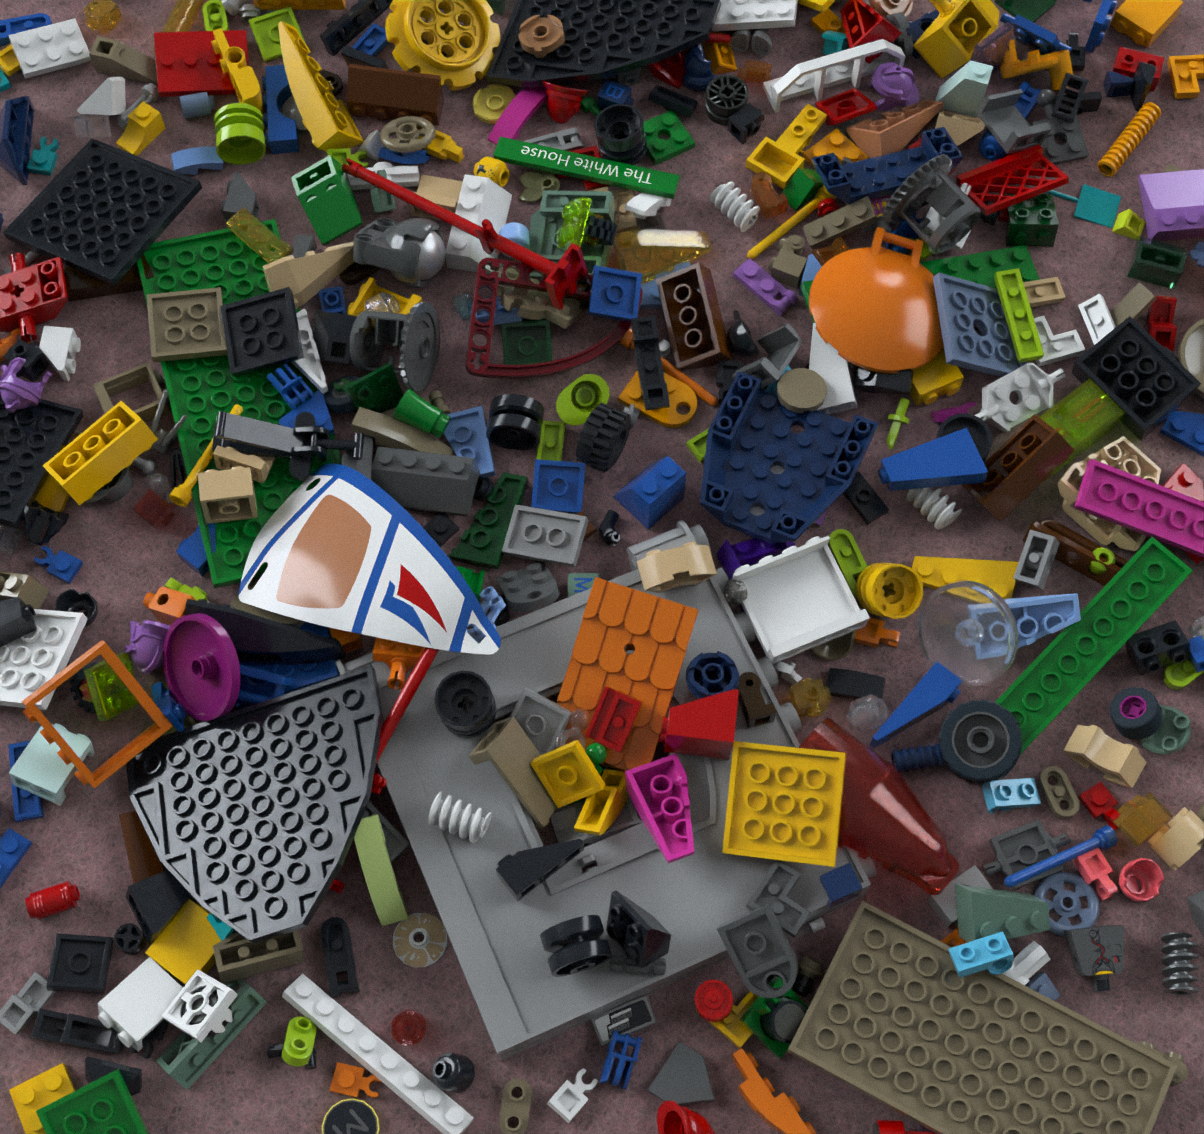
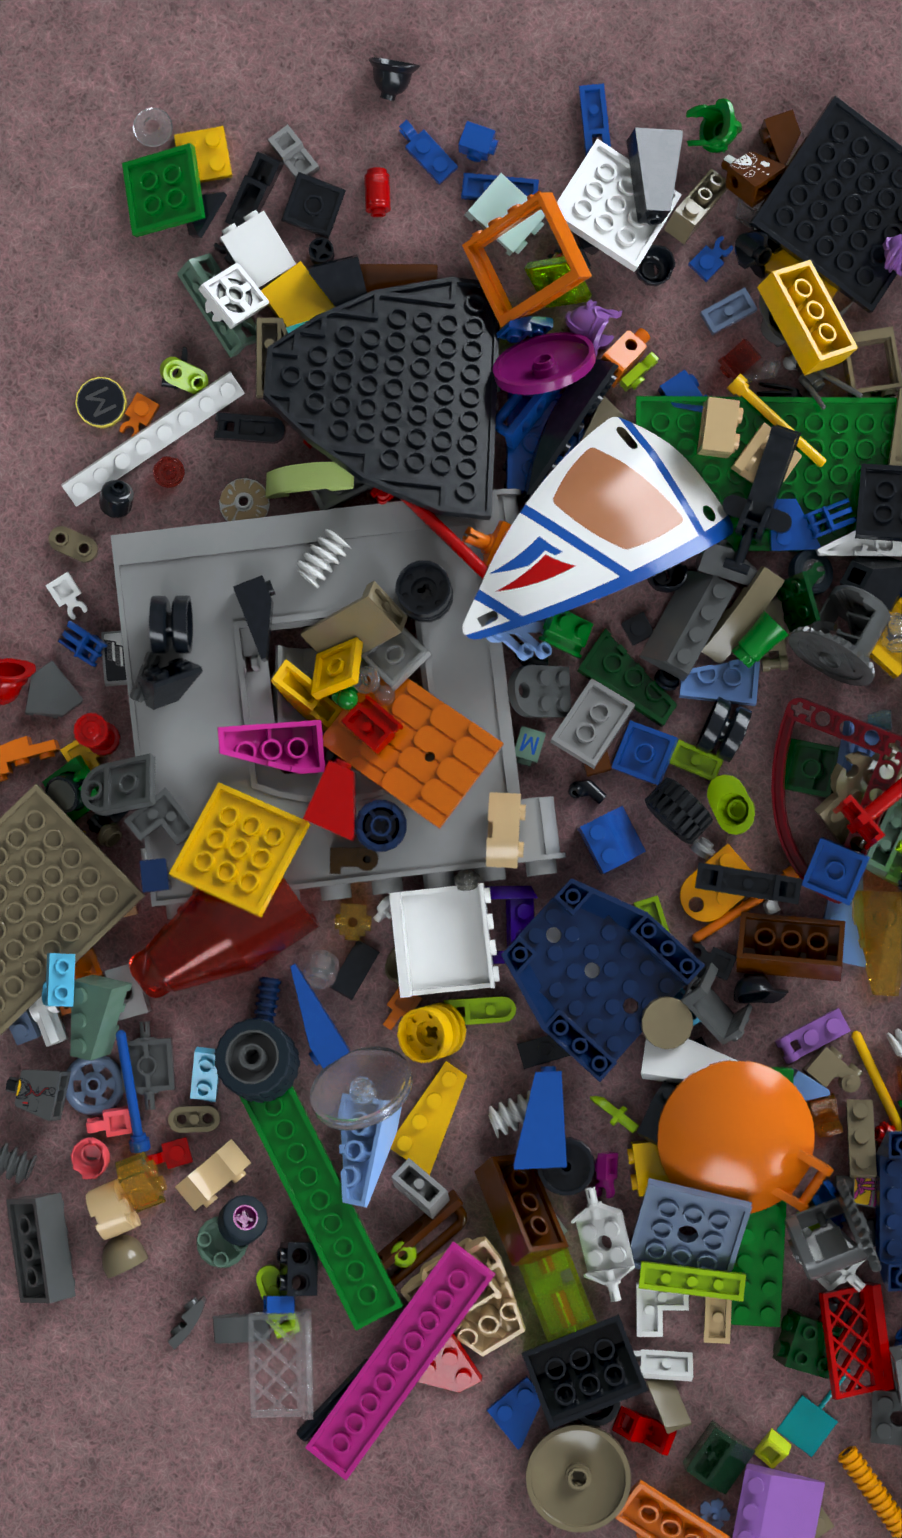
camera: 110 degrees right, 20 degrees up
(108, 533) = (728, 311): none -> sand blue plate

